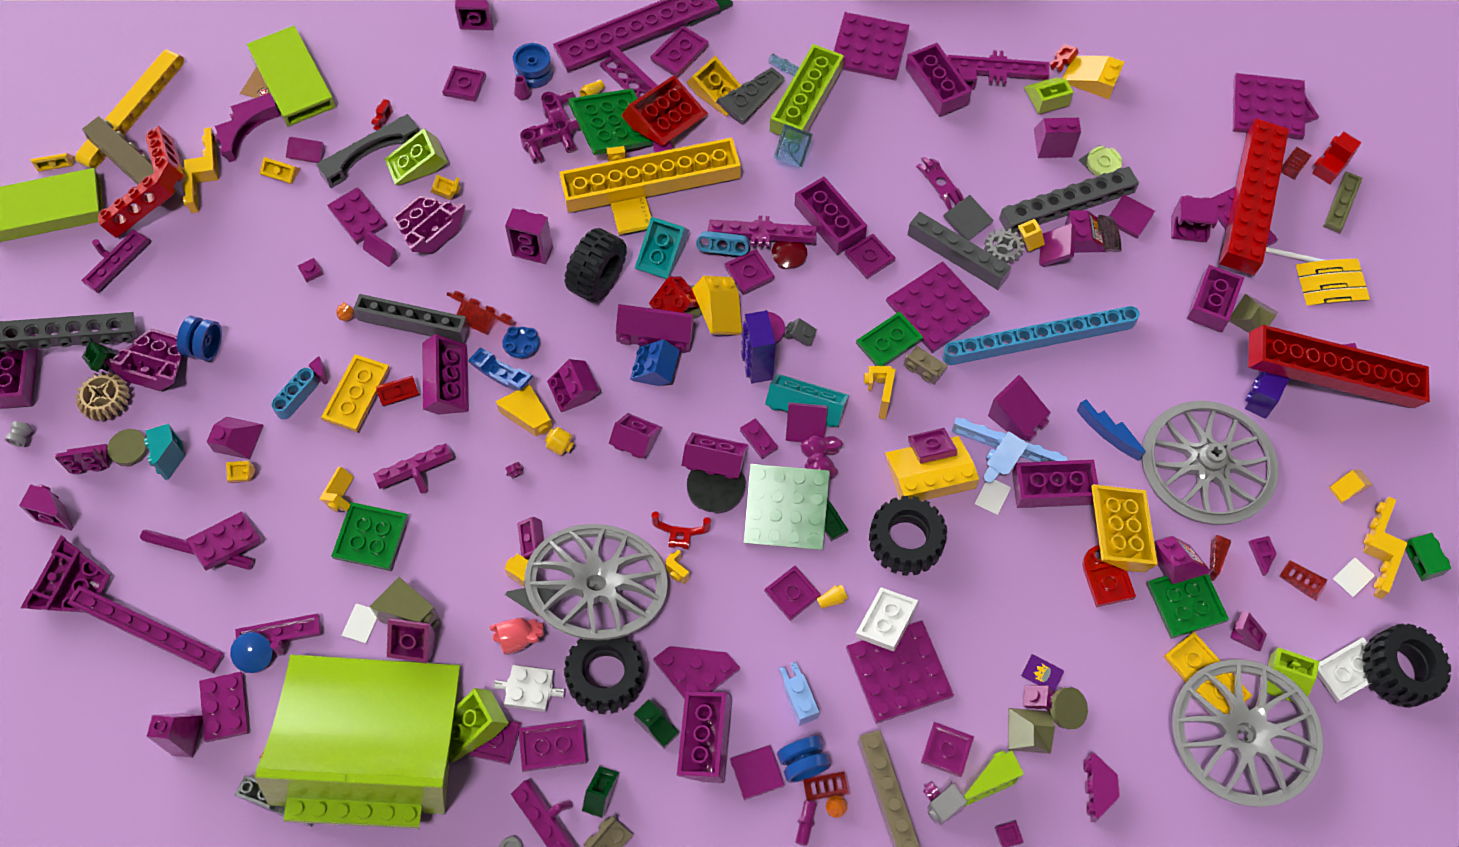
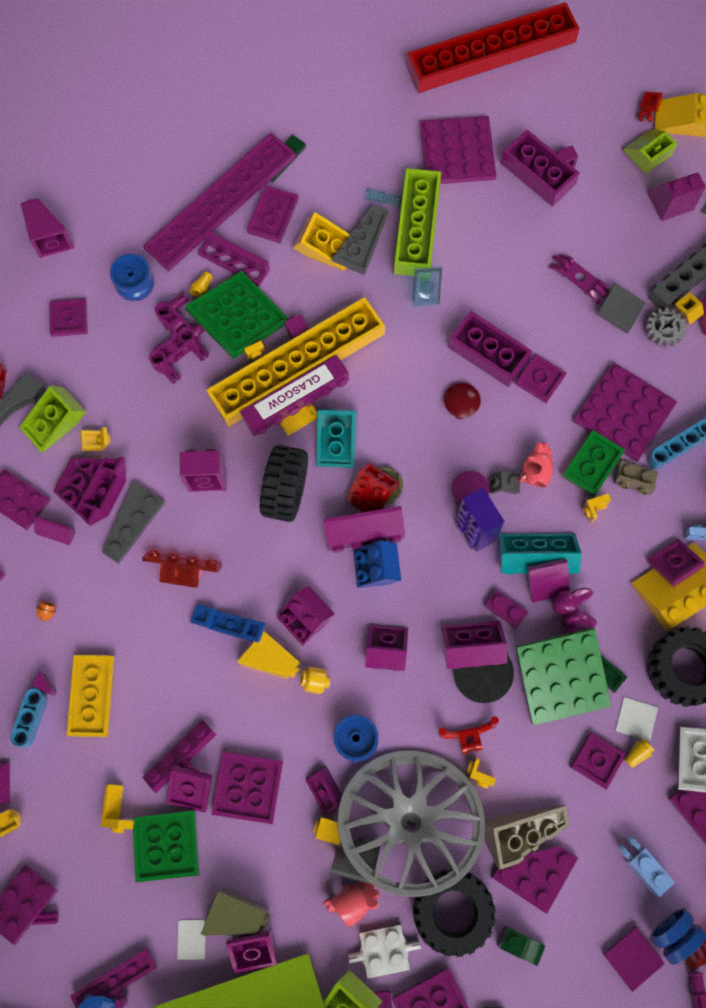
camera: 15 degrees left, 10 degrees up
(397, 390) = (132, 679): red plate -> none
(410, 318) = (116, 597): dark grey brick -> none
(410, 493) = (189, 788): none -> magenta tile
(444, 375) = (173, 647): magenta slope -> none
(455, 260) = (132, 520): none -> dark grey wing
(462, 512) = (247, 788): none -> magenta plate
(514, 470) = (282, 725): magenta plate -> none
(520, 341) = (235, 584): blue dish -> none
(521, 88) = (130, 306): magenta cone -> none
(575, 499) = (344, 741): none -> blue wheel
(636, 201) = (295, 395): none -> magenta brick
(664, 111) = (286, 289): red slope -> none
(689, 630) = (518, 834): none -> dark tan wedge
(704, 736) = (574, 945): magenta slope -> none
(714, 247) = (387, 409): dark azure beam -> none
(719, 304) = (418, 482): yellow slope -> none
(749, 271) = (431, 434): magenta plate -> none
(764, 231) = (428, 386): magenta hinge -> none
(835, 325) = (538, 466): none -> coral piece
(843, 570) = (636, 719): none -> white sticker
(886, 393) = (615, 524): yellow tile -> none
(959, 250) = (626, 346): dark grey brick -> none
(1001, 67) = (594, 135): magenta hinge -> none

